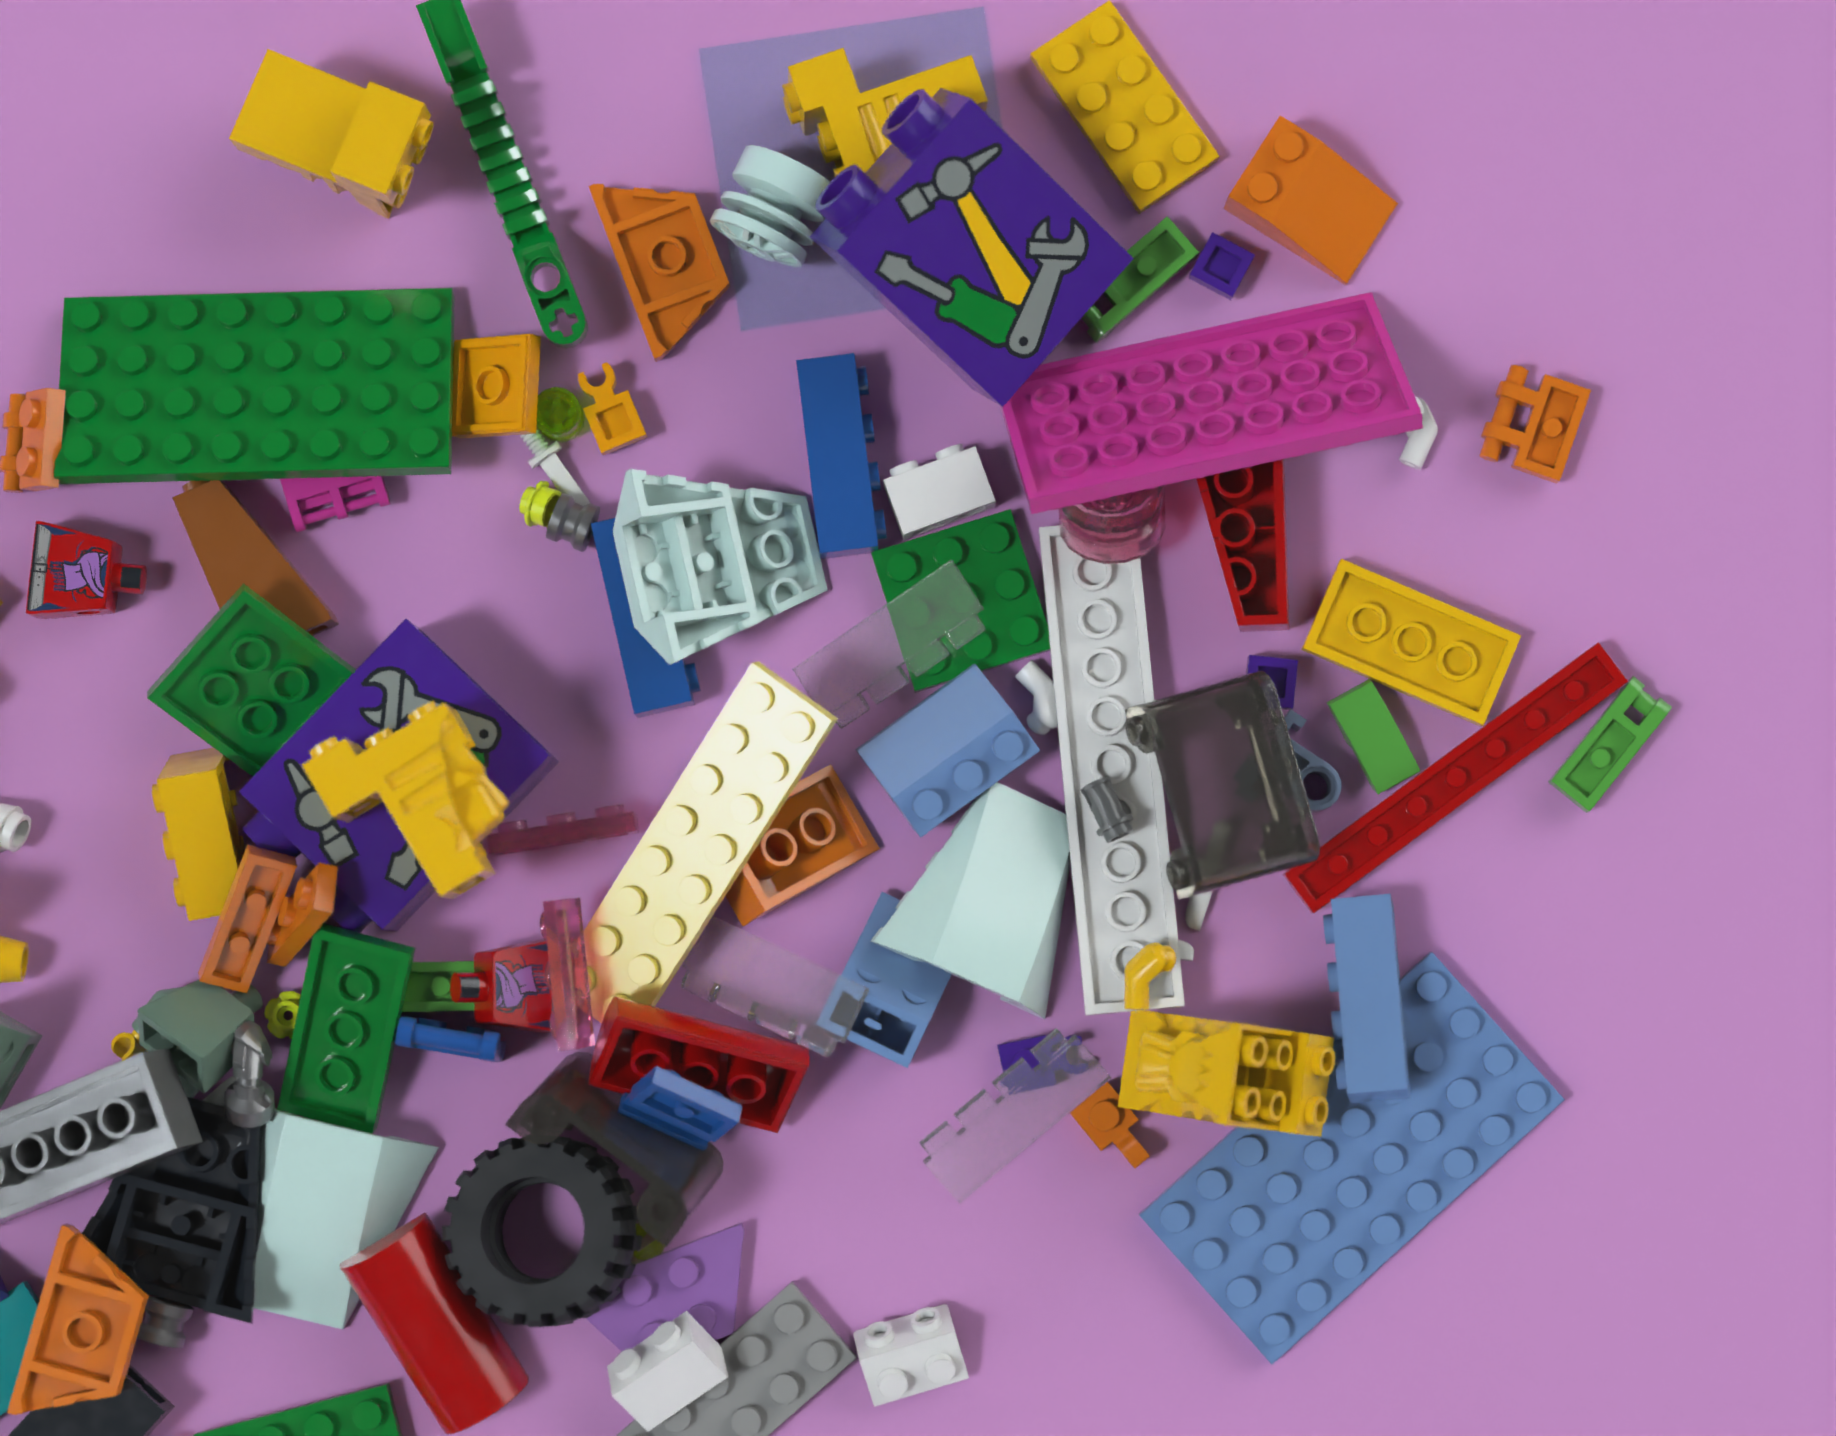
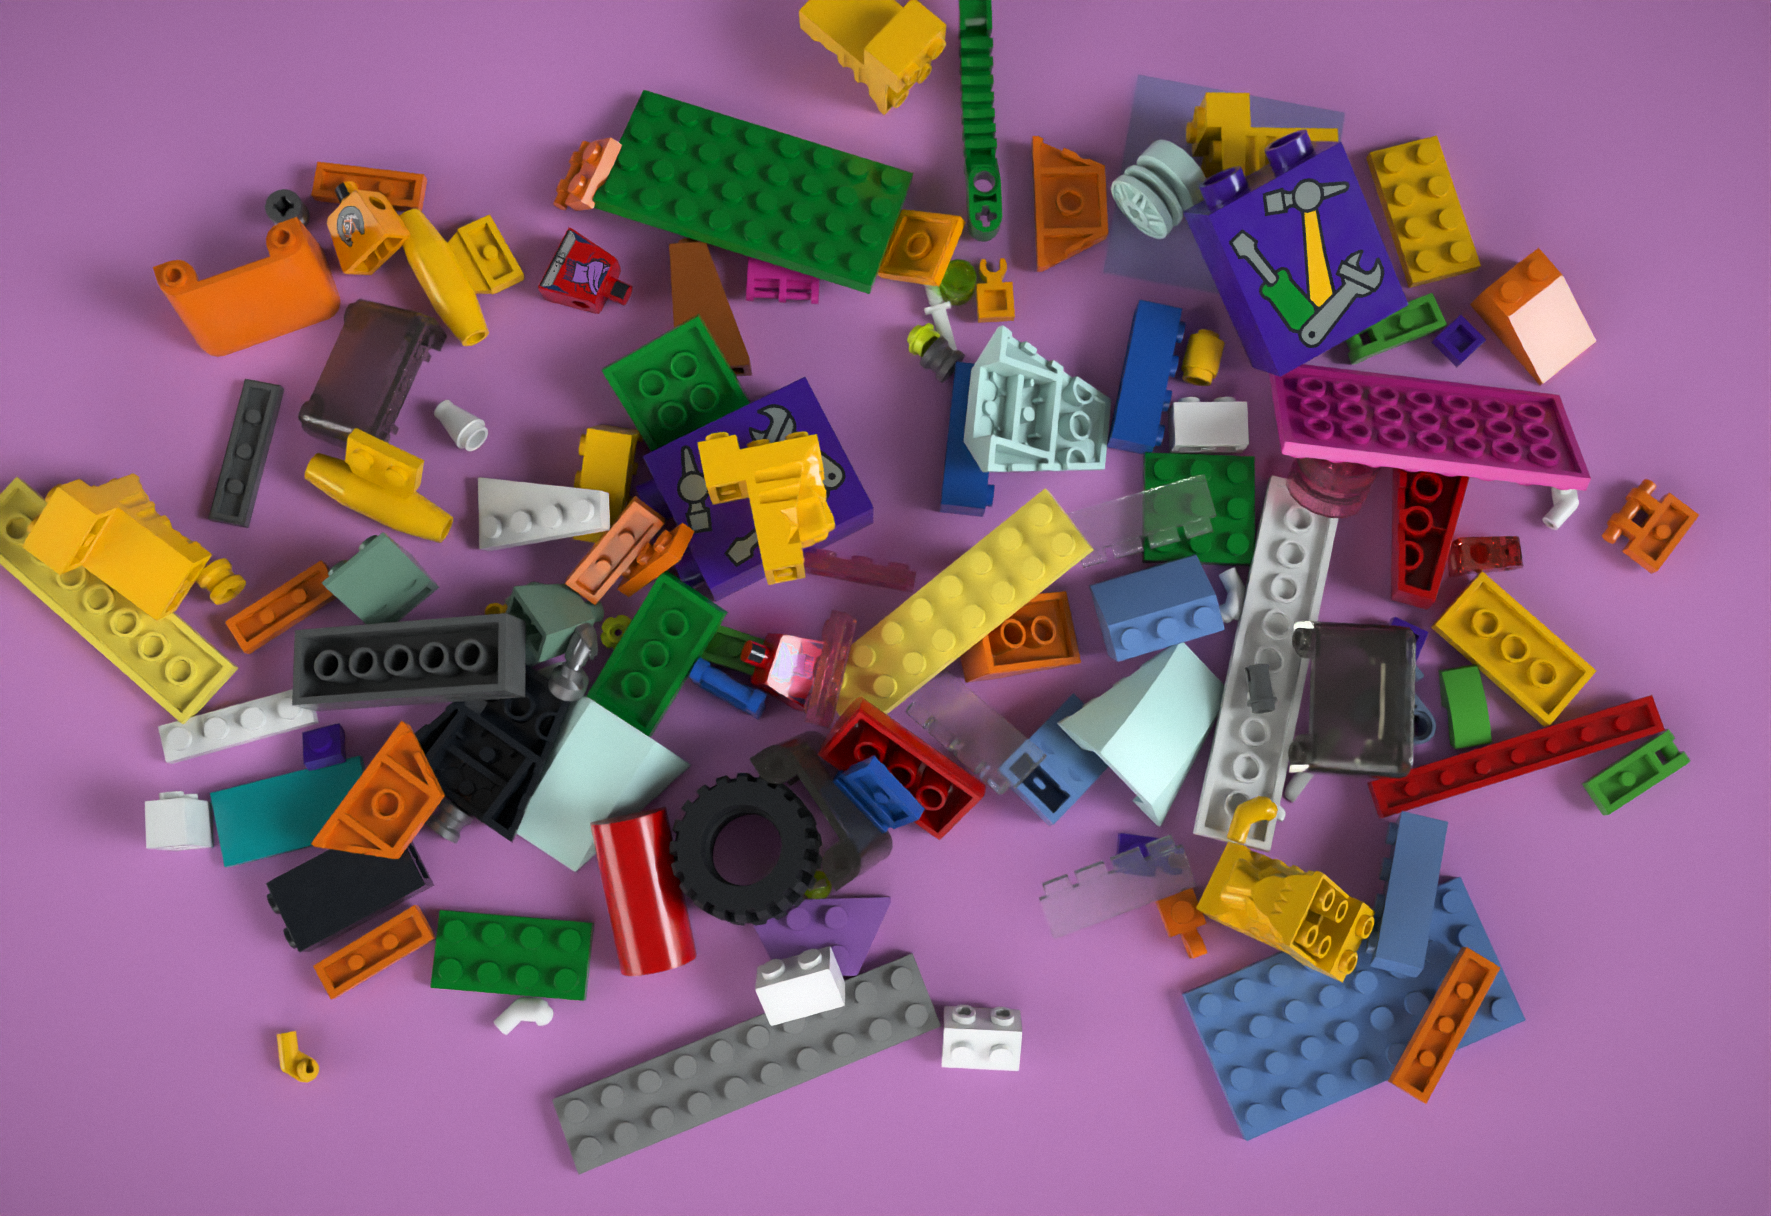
camera: 15 degrees right, 5 degrees down
(126, 905) = (535, 513): none -> white wing
(902, 403) = (1202, 358): none -> yellow brick
(1338, 535) = (1484, 554): none -> clear red leg
(1462, 1142) = (1444, 1024): none -> orange plate

